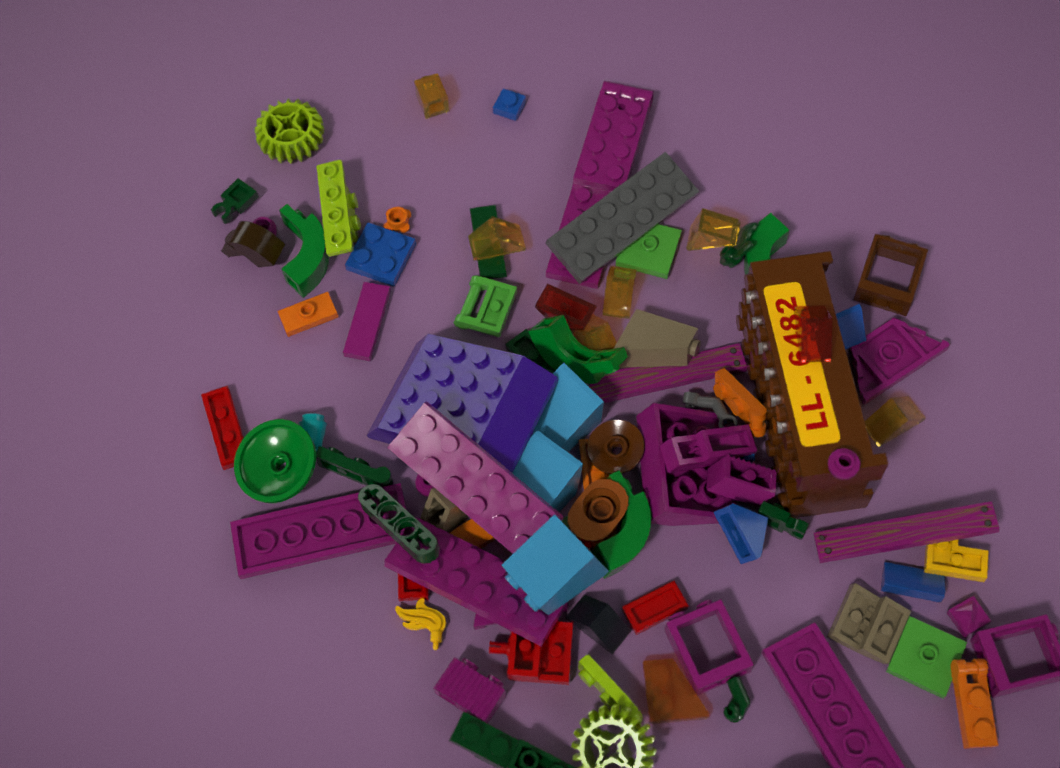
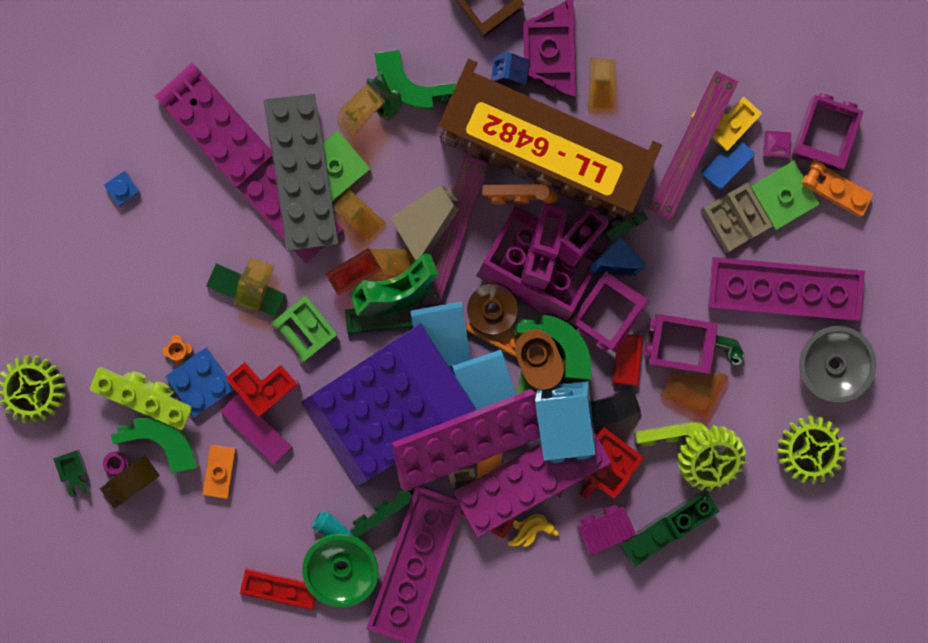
camera: 60 degrees left, 25 degrees up
(400, 521) = (455, 512): dark green beam -> none
(404, 303) = (259, 393): none -> red panel
(431, 95) = (72, 249): clear yellow brick -> none
(687, 577) = (635, 298): none -> magenta window
(694, 401) = (503, 210): dark grey arm -> none
(813, 333) = (528, 123): clear red slope -> none
(840, 471) = (638, 185): magenta plate -> none

